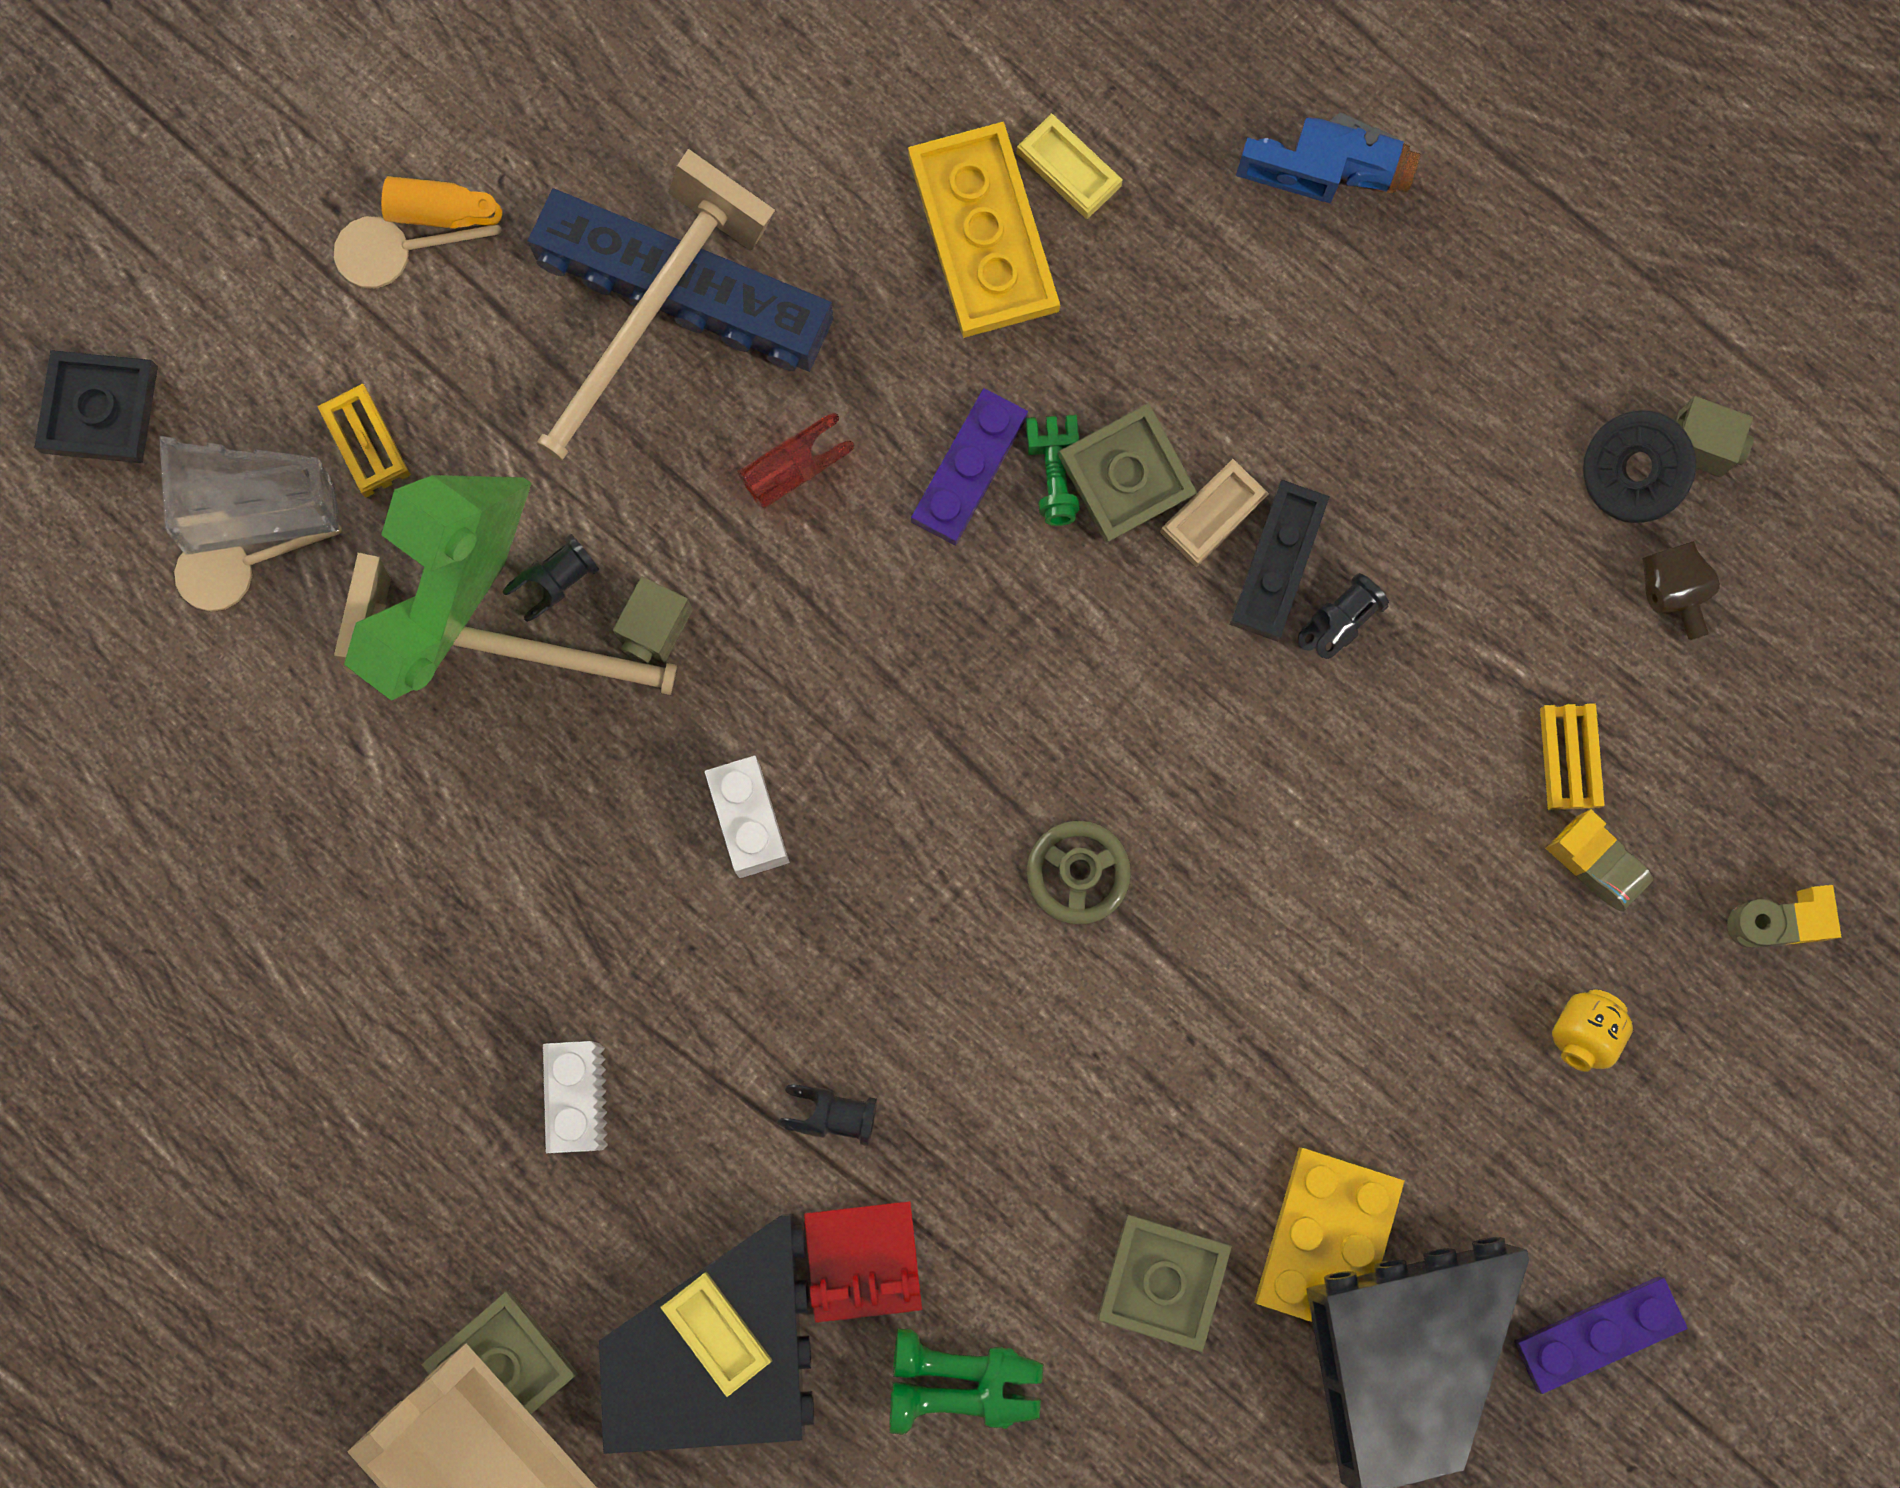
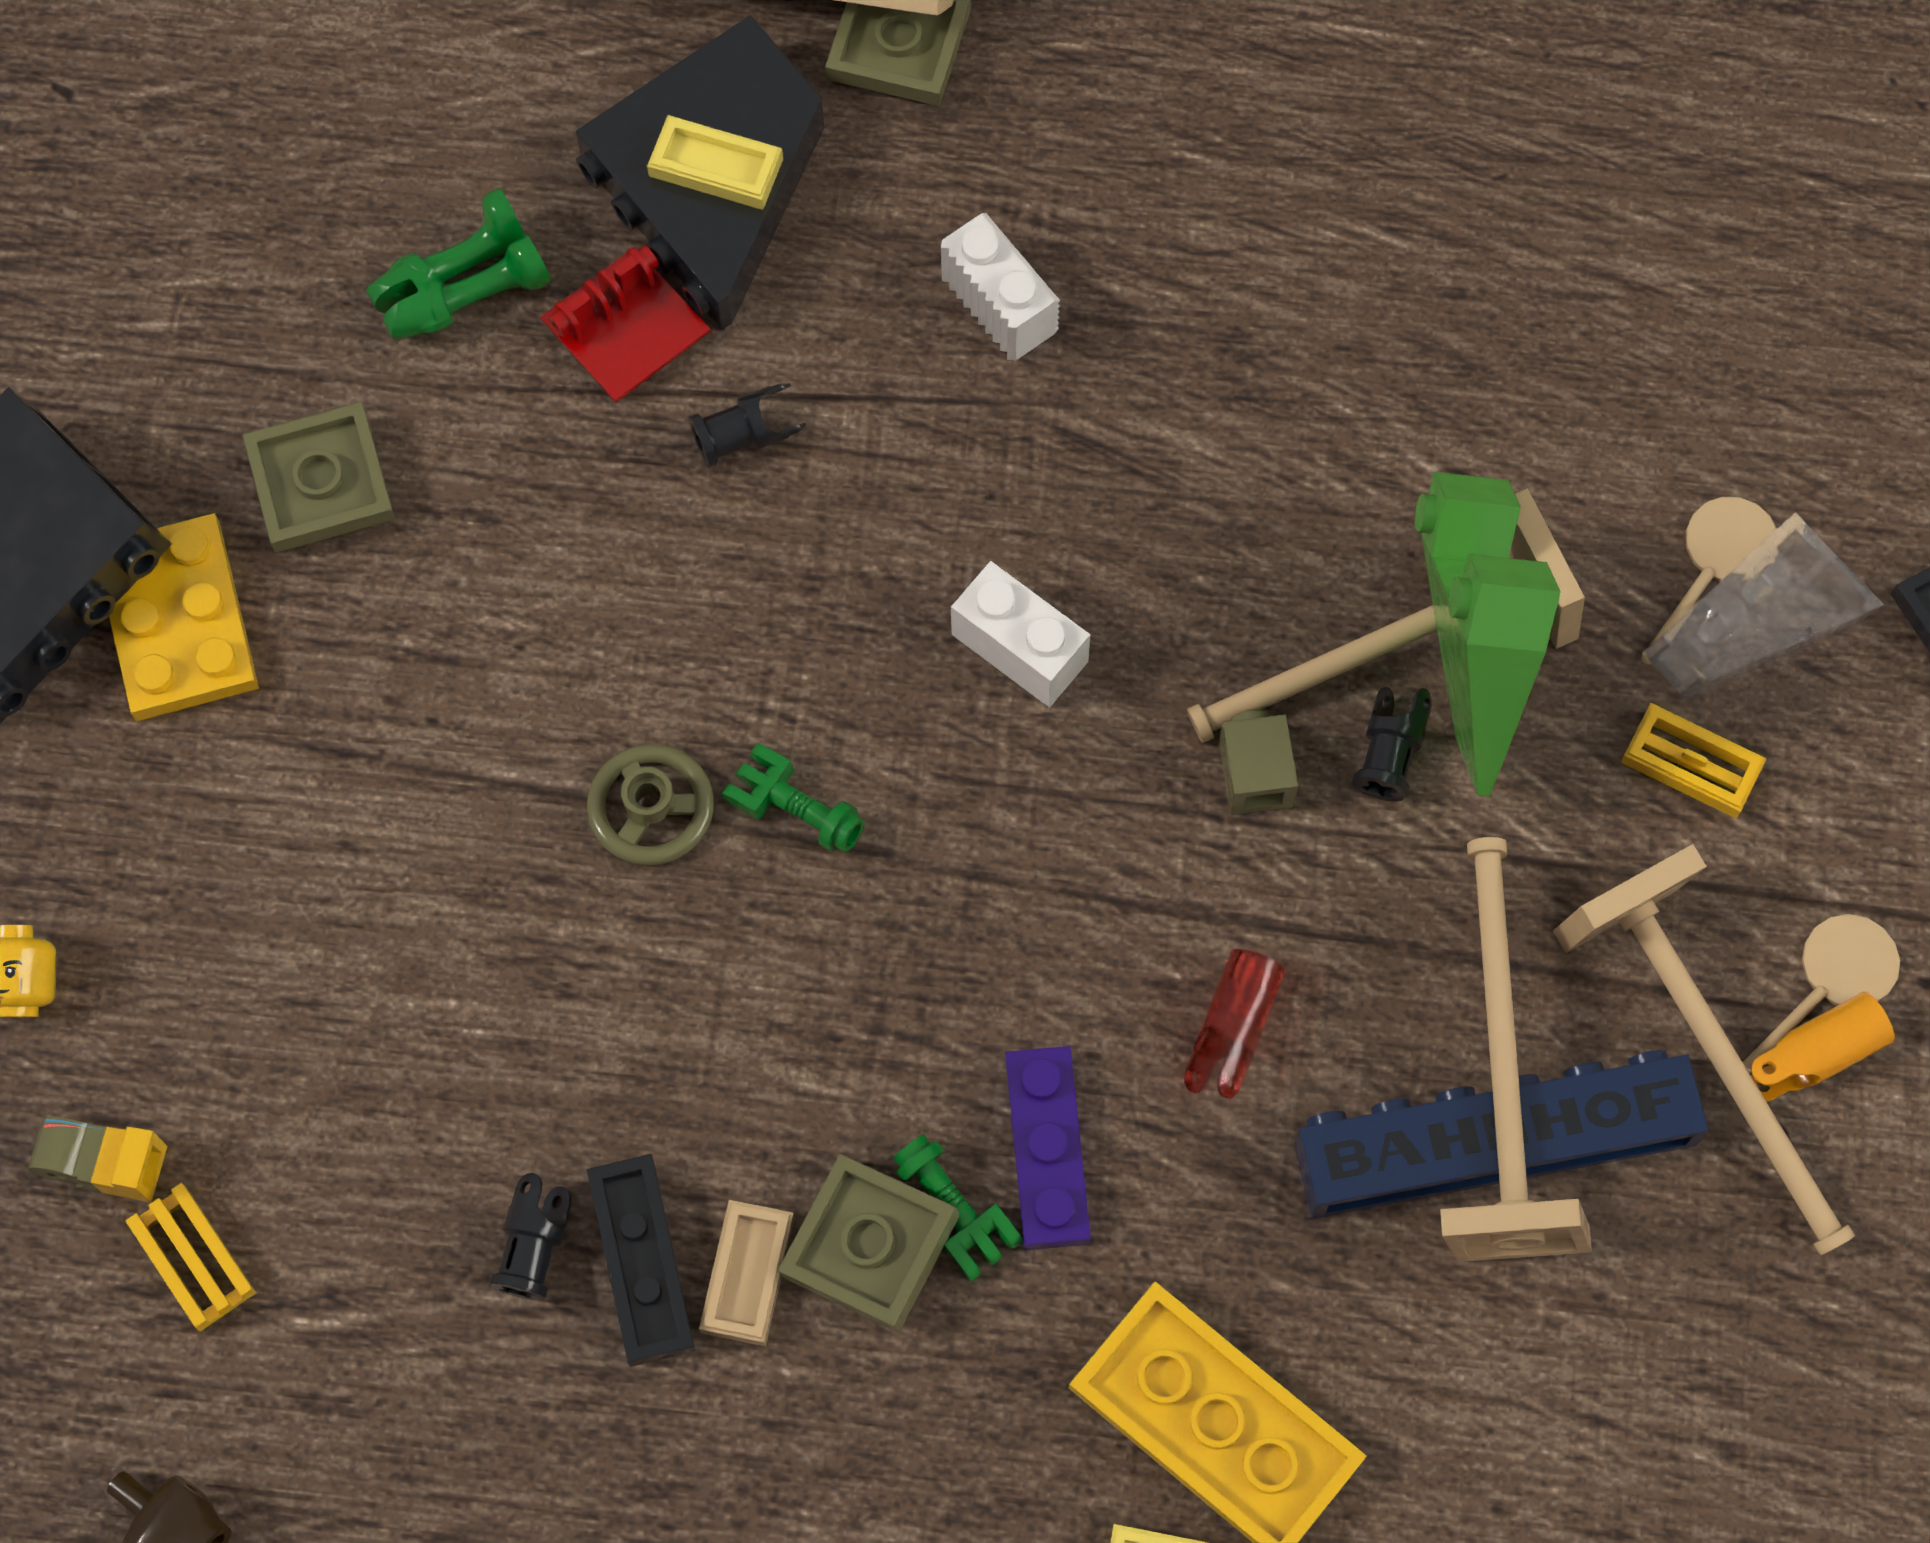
camera: 150 degrees right, 10 degrees down
(488, 355) = (1634, 908): none -> tan tile
(963, 765) = (838, 826): none -> green hinge

